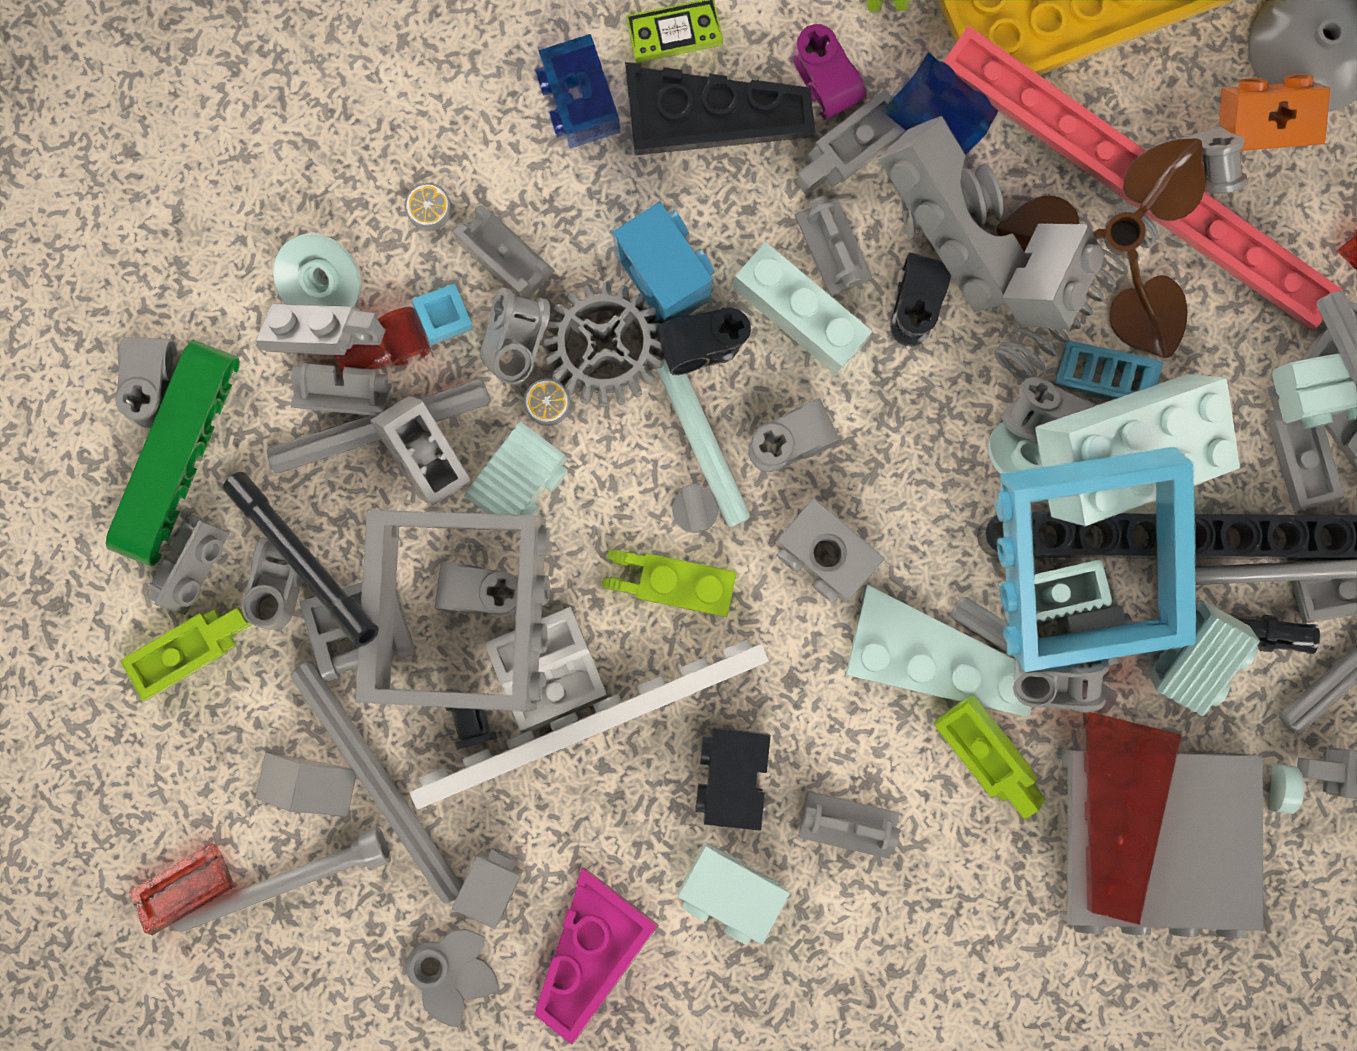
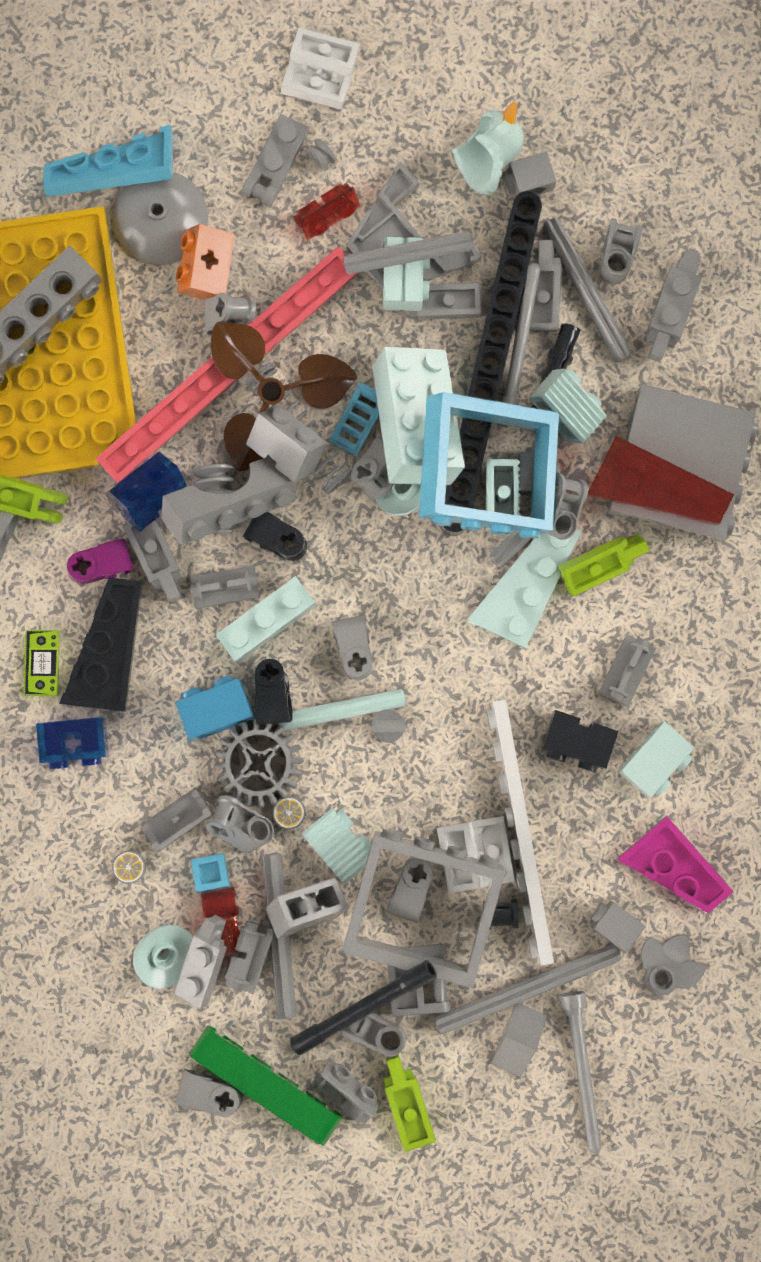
camera: 80 degrees left, 0 degrees up
(181, 889) = (572, 1140): clear red tile -> none
(675, 583) = (436, 751): lime hinge -> none
(855, 556) = (451, 625): light grey brick -> none
(1286, 789) = (666, 371): light aqua tile -> none

